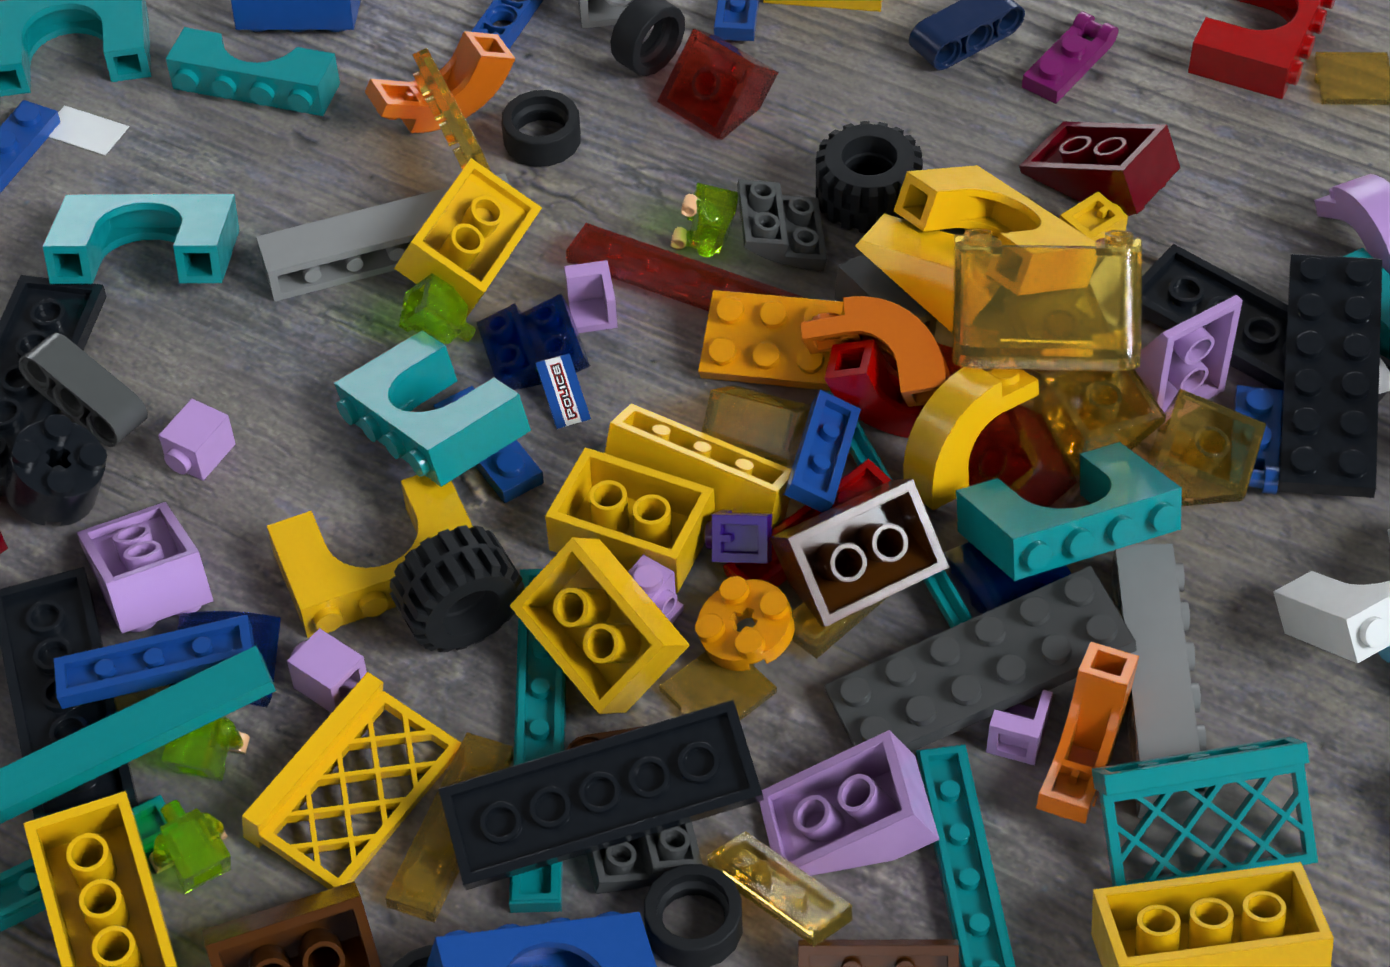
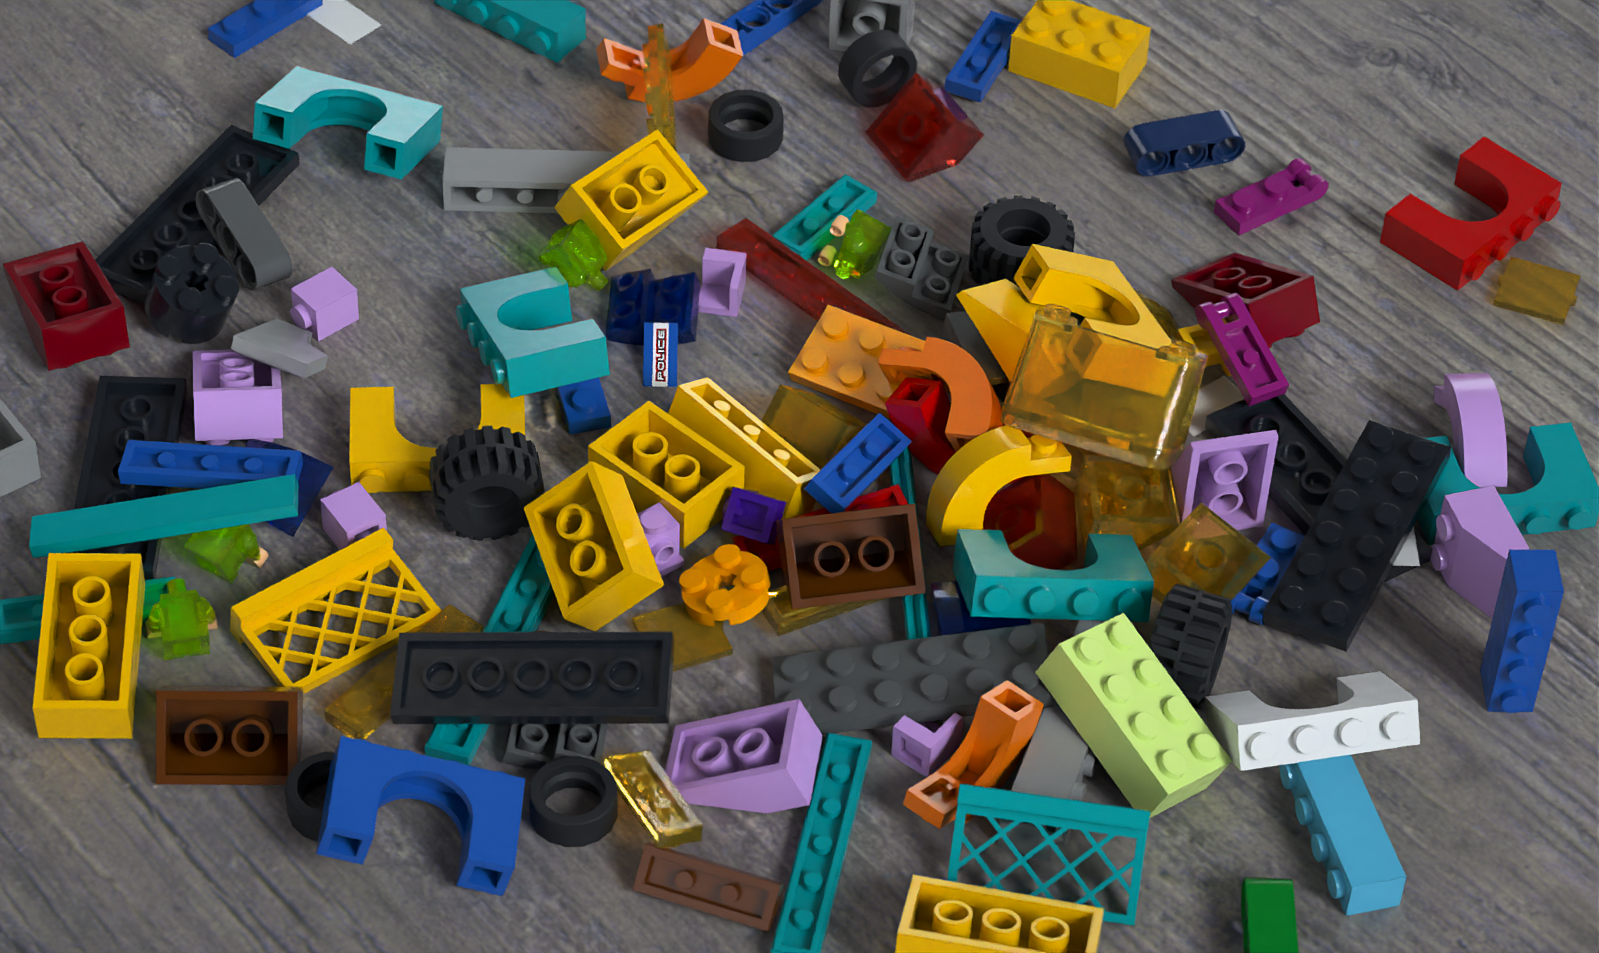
camera: 15 degrees right, 5 degrees down
(173, 501) = (281, 347): none -> light grey tile
(660, 198) = (810, 227): none -> teal tile
(1134, 212) = (1242, 349): none -> magenta plate
(1226, 639) = (1133, 716): none -> yellowish green brick
(1237, 544) = (1192, 639): none -> black tyre

